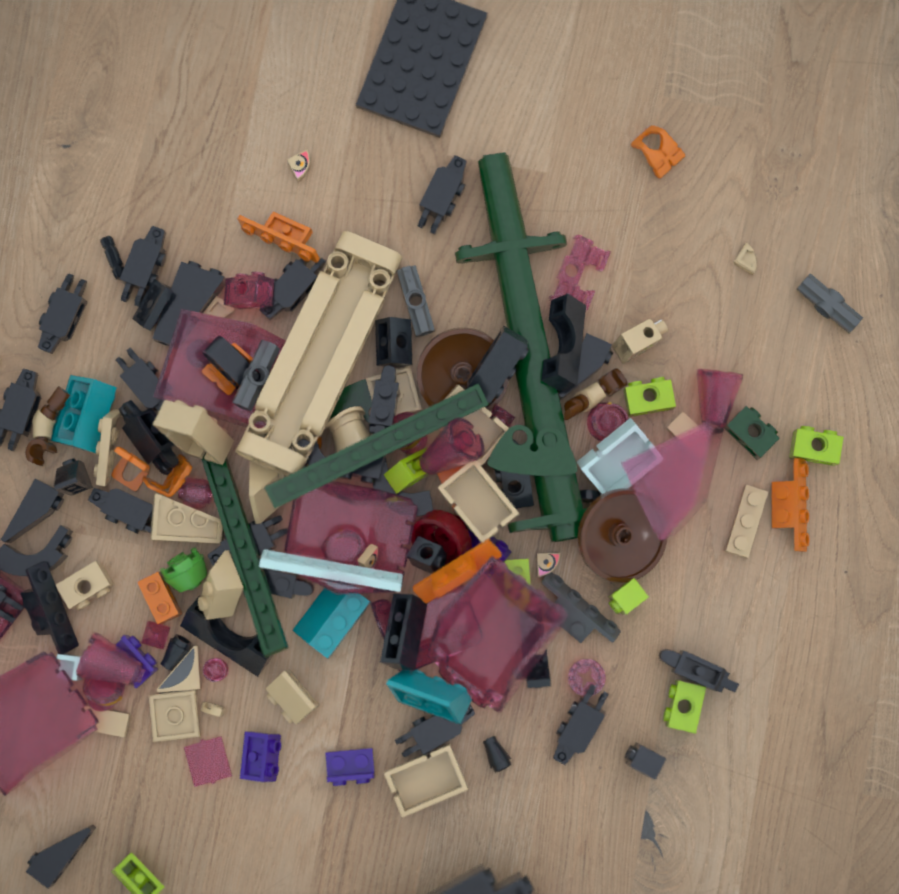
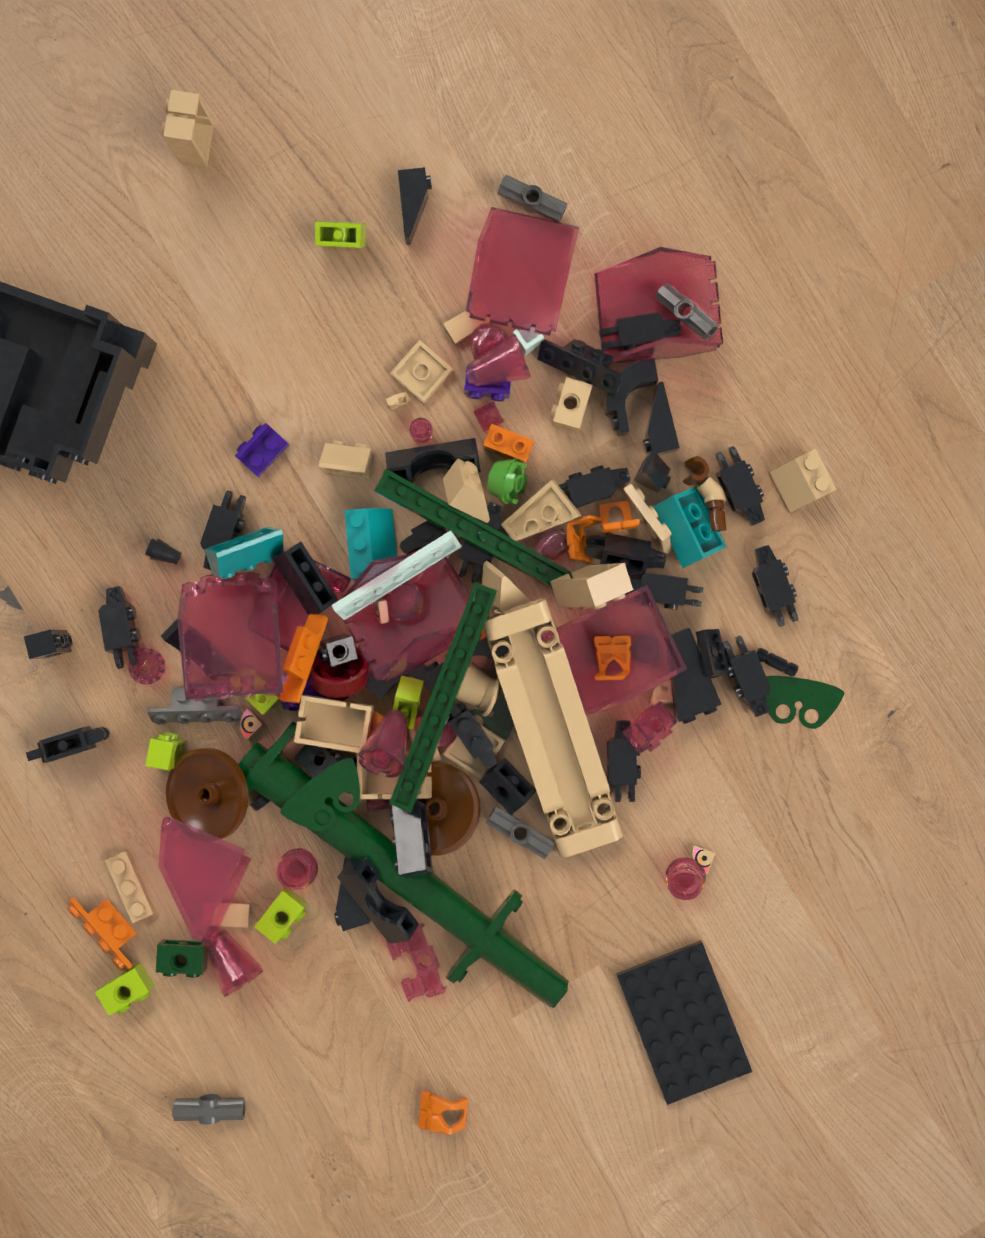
camera: 130 degrees right, 5 degrees up
(110, 210) = (812, 694): none -> dark green piece
(175, 651) = (462, 418): black cone -> none
(185, 675) = (440, 408): tile -> none
(208, 761) = (368, 361): clear pink piece -> none
(228, 361) = (608, 661): black beam -> none
(260, 756) = (332, 398): dark purple bracket -> none
(262, 362) = (588, 683): dark grey piece -> none
(284, 232) = (665, 795): orange bracket -> none
(325, 160) = (685, 878): none -> clear pink piece
(426, 780) = (195, 487): tan piece -> none
(442, 192) = (575, 933): black hinge -> none
(595, 393) = (324, 882): reddish brown piece -> none
(605, 465) = (264, 849): light aqua piece -> none
(639, 339) = (326, 952): tan torso -> none
(688, 720) = (44, 704): lime brick -> none
(747, 259) = (301, 1087): tan tile -> none

